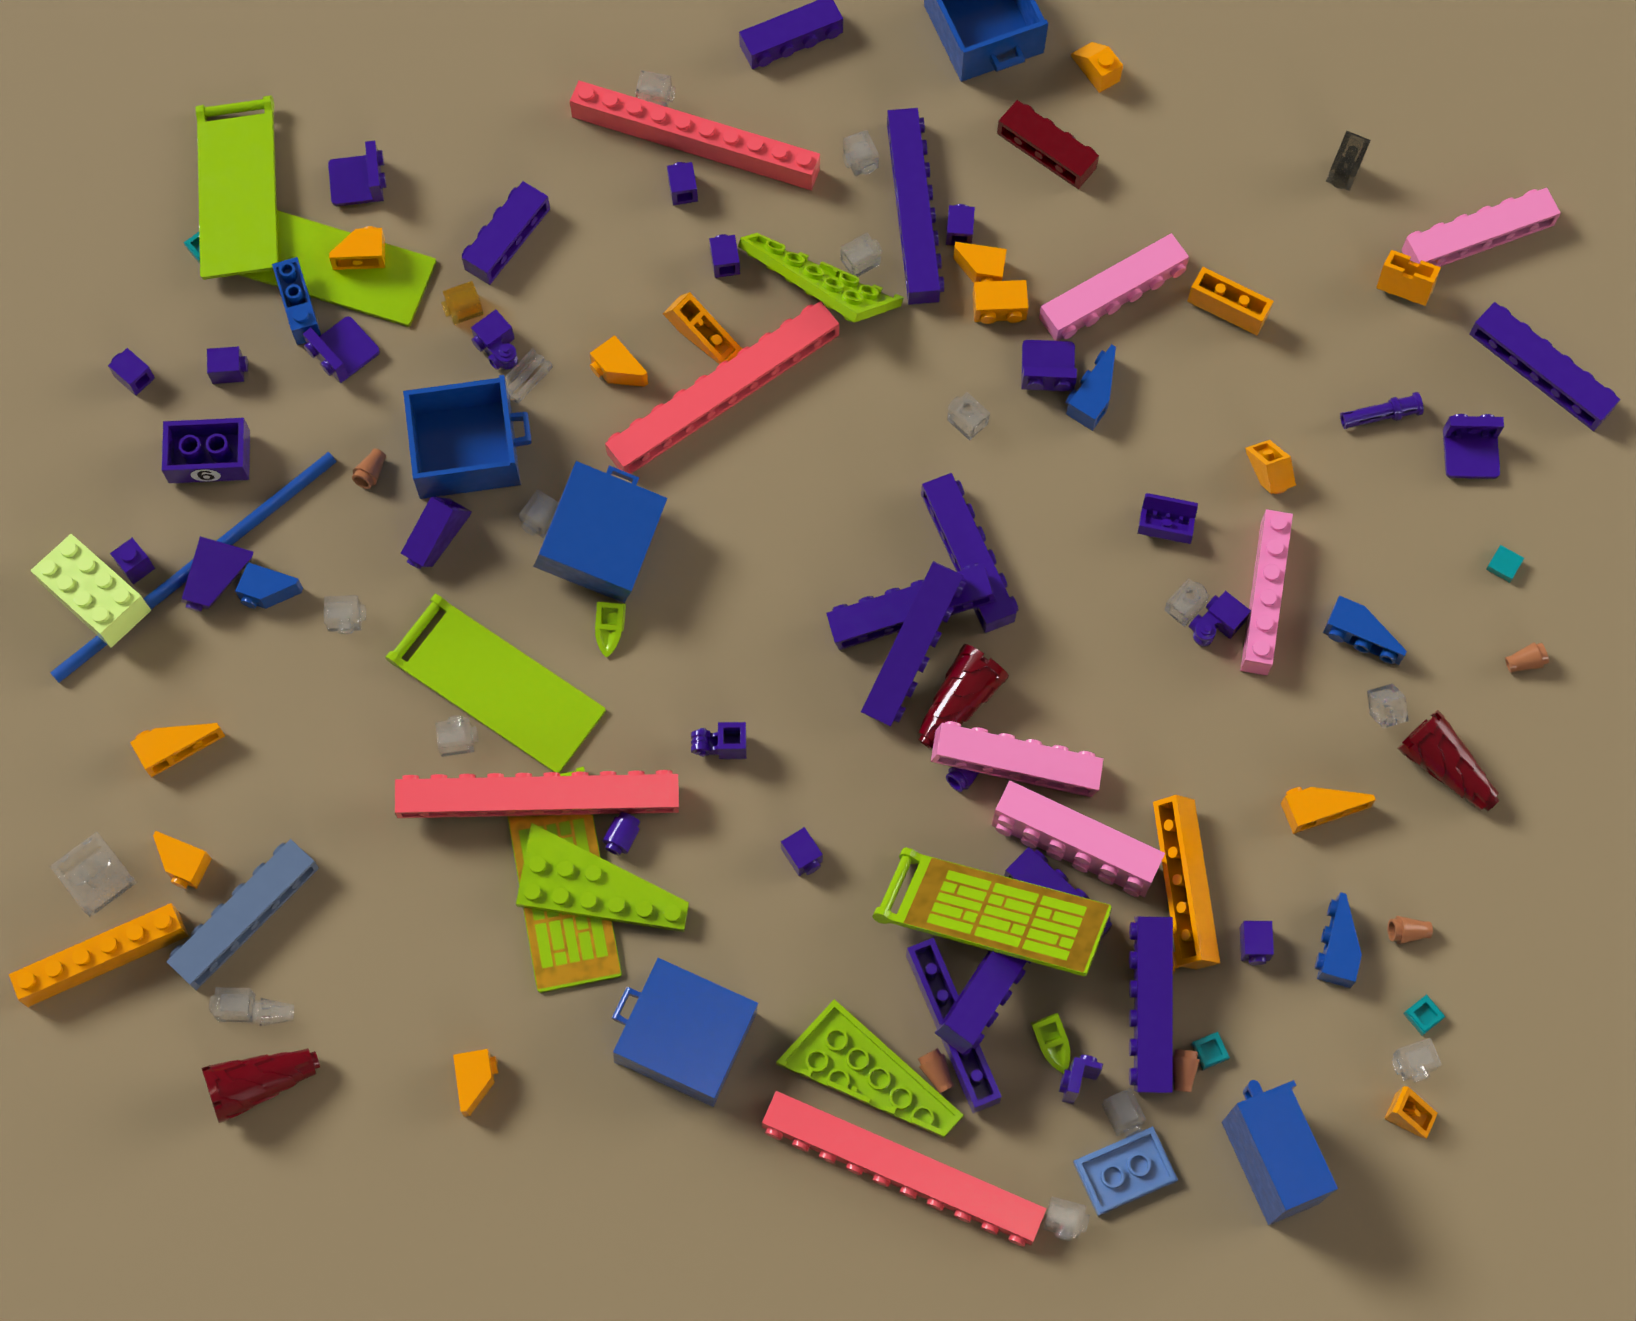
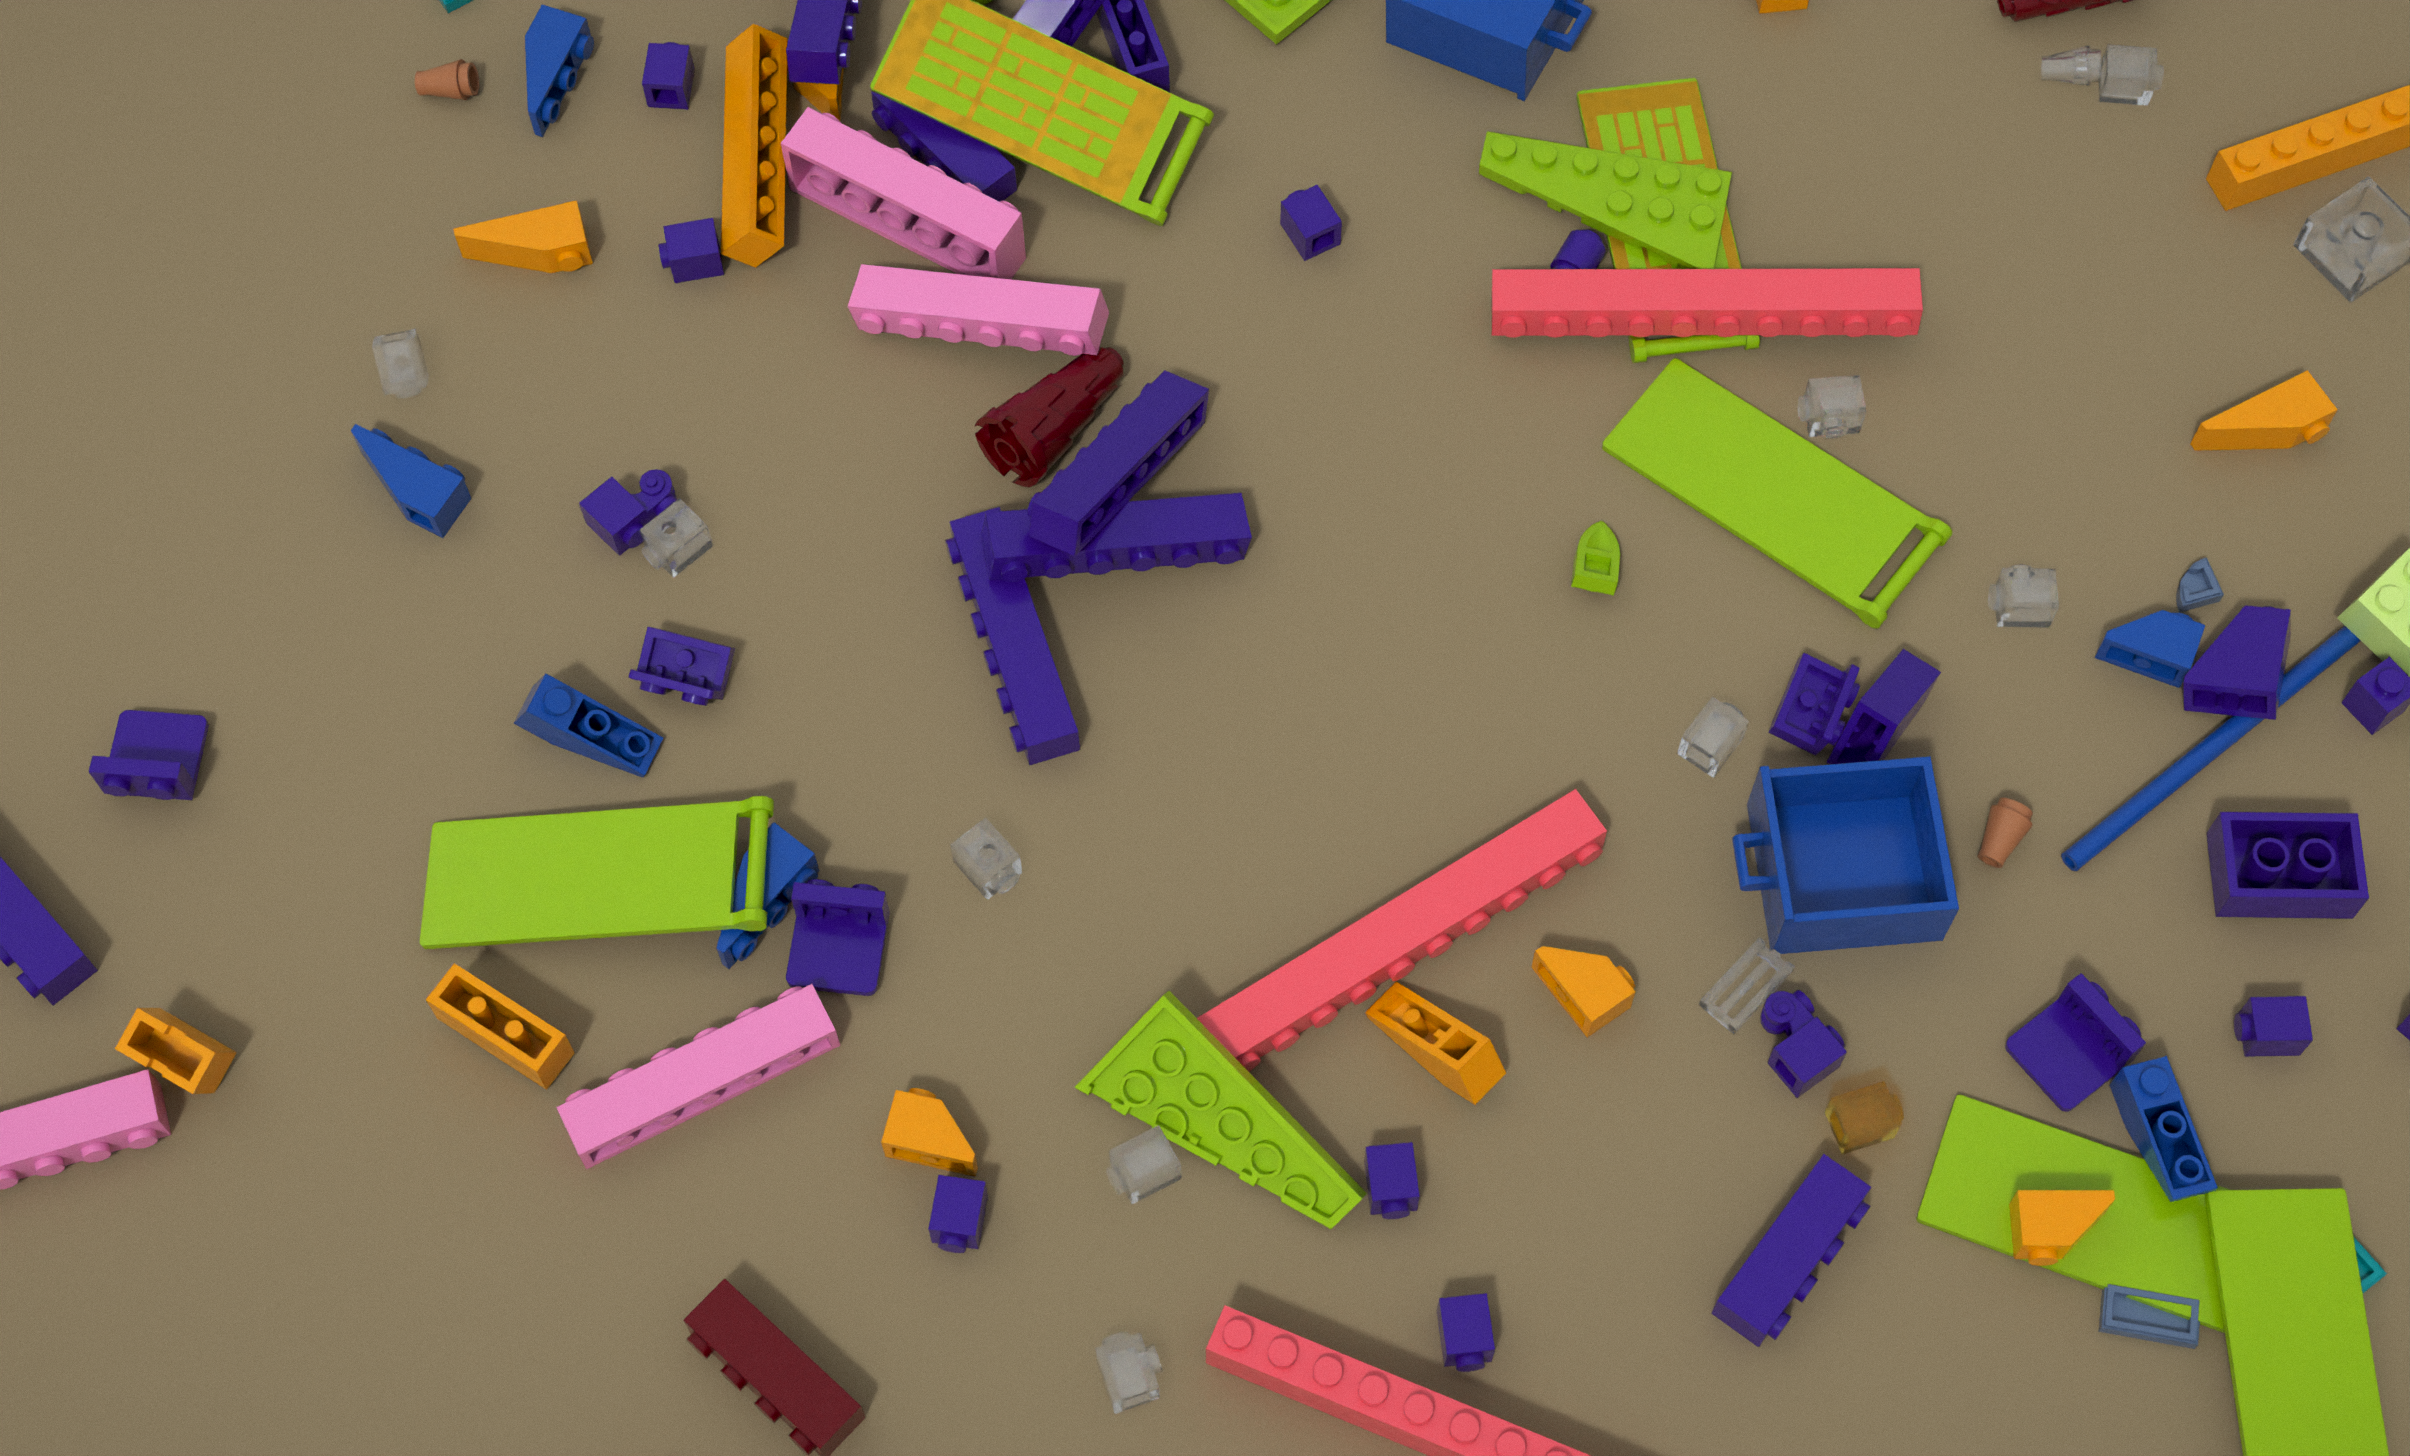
camera: 175 degrees left, 5 degrees down
(182, 861) = (2234, 263): light orange slope -> none
(234, 634) = (2198, 587): none -> sand blue tile
(242, 914) = (2129, 187): sand blue brick -> none
(328, 216) = (2140, 1321): none -> sand blue tile
(358, 177) = (2077, 1383): dark purple bracket -> none
(477, 537) = (1814, 704): none -> dark purple bracket
(601, 531) = (1613, 670): blue container -> none
(728, 742) = (1416, 373): dark purple brick -> none
(913, 206) = (1039, 1263): dark purple brick -> none
(1000, 301) = (904, 1060): light orange brick -> none
(1195, 389) = (593, 874): none -> lime flag
(1215, 805) = (691, 250): none -> dark purple brick
(1219, 480) = (586, 727): none -> blue slope
(1266, 592) = (545, 545): bright pink brick -> none
(1271, 466) = (494, 747): light orange slope -> none
(1348, 161) = (226, 1282): clear smoke slope -> none
(1394, 409) = (263, 831): dark purple pin -> none
(1448, 760) = (338, 290): dark red cone -> none
(1505, 563) = (155, 578): teal tile -> none
(1531, 657) = (165, 429): nougat cone -> none

